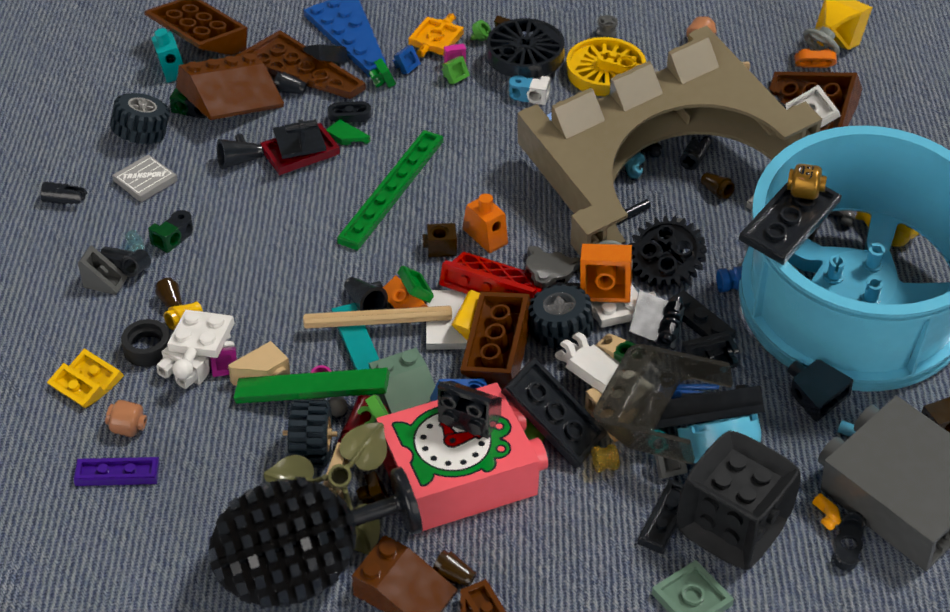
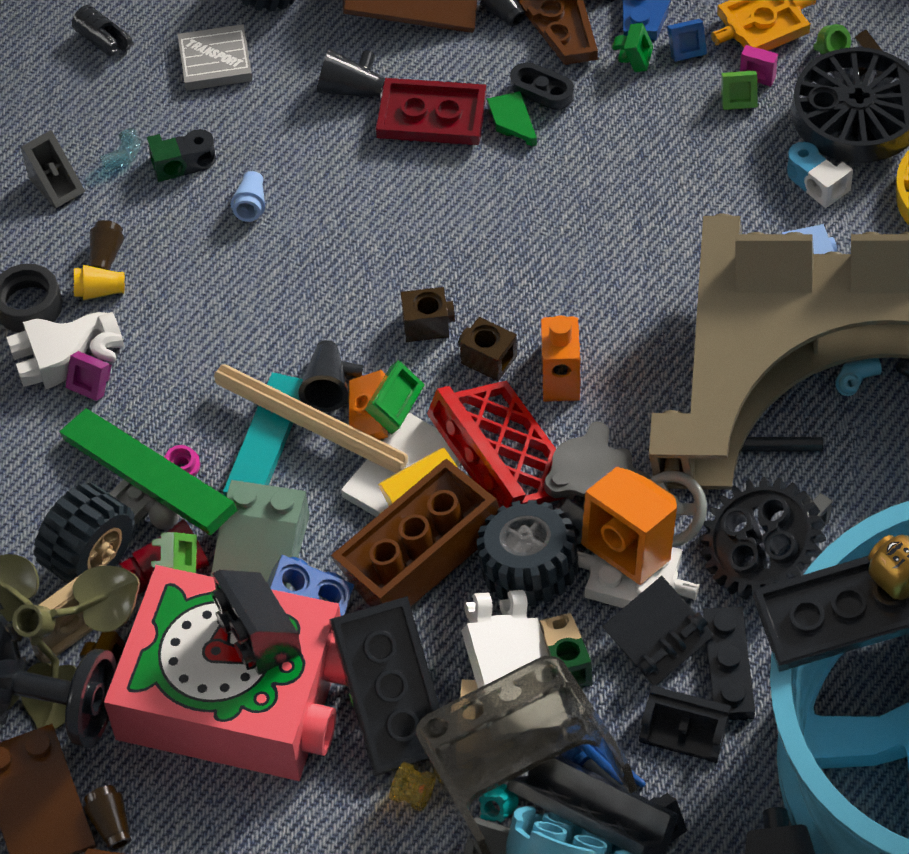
camera: 40 degrees right, 10 degrees up
(127, 261) = (91, 172): black piece -> none
(198, 335) = (71, 327): white plate -> none
(235, 233) = (248, 199): none -> light blue cone
(261, 362) = (124, 405): tan slope -> none
(299, 139) = (431, 98): black plate -> none
(389, 190) = (499, 233): green tile -> none
(391, 240) = (426, 314): none -> dark brown brick

